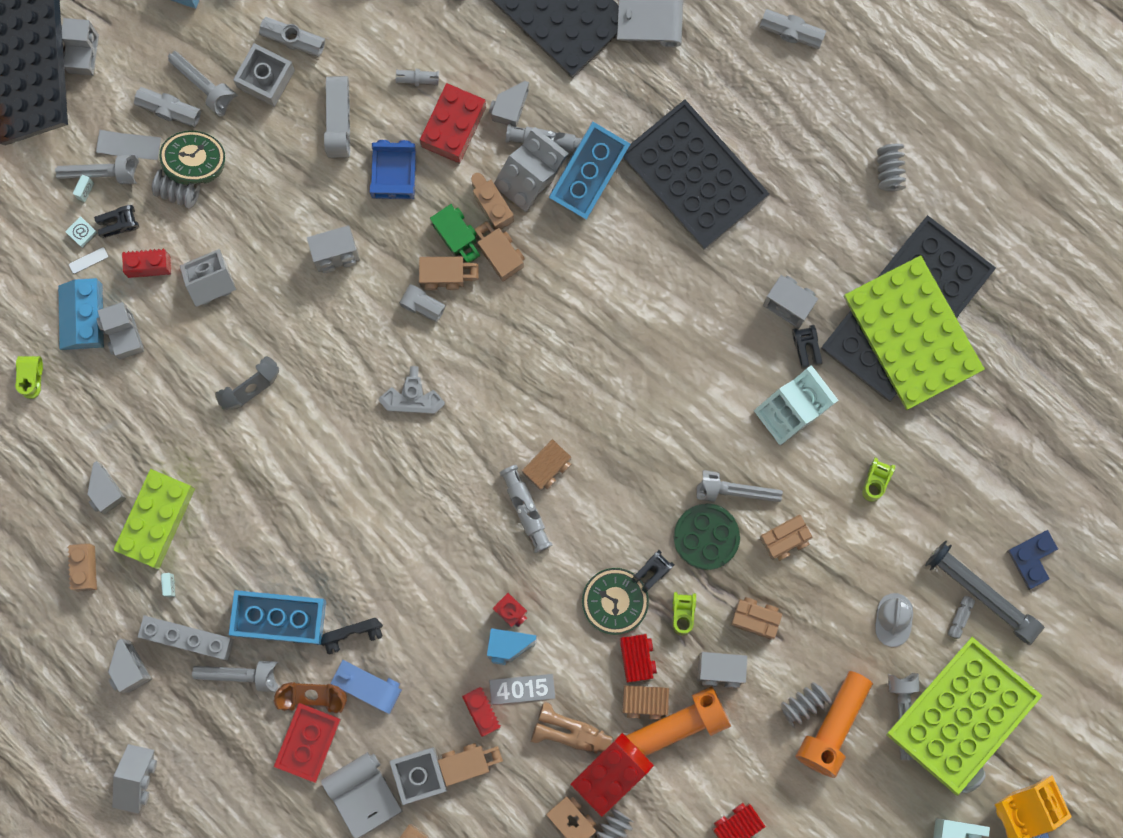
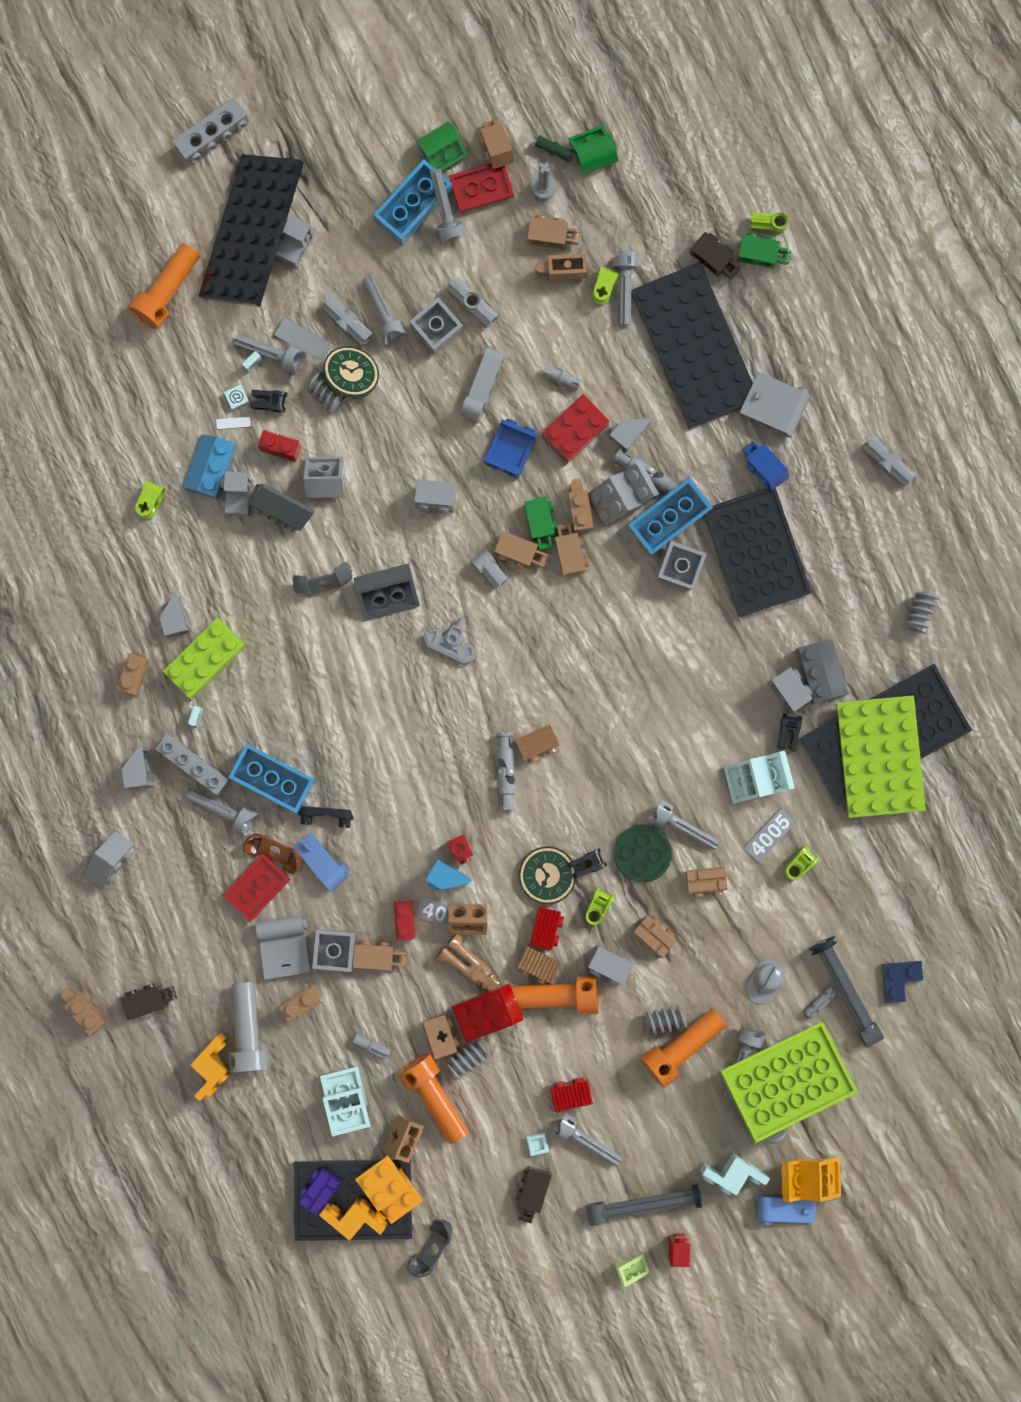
camera: 25 degrees right, 5 degrees up
(172, 326) = (279, 507): none -> dark grey slope
(322, 370) = (386, 591): none -> dark grey slope
(549, 682) = (467, 919): none -> medium nougat brick
(621, 218) = (680, 565): none -> light grey brick
(667, 82) = (765, 465): none -> blue brick
(814, 269) = (822, 671): none -> dark grey slope
(832, 463) = (769, 835): none -> light grey sticker

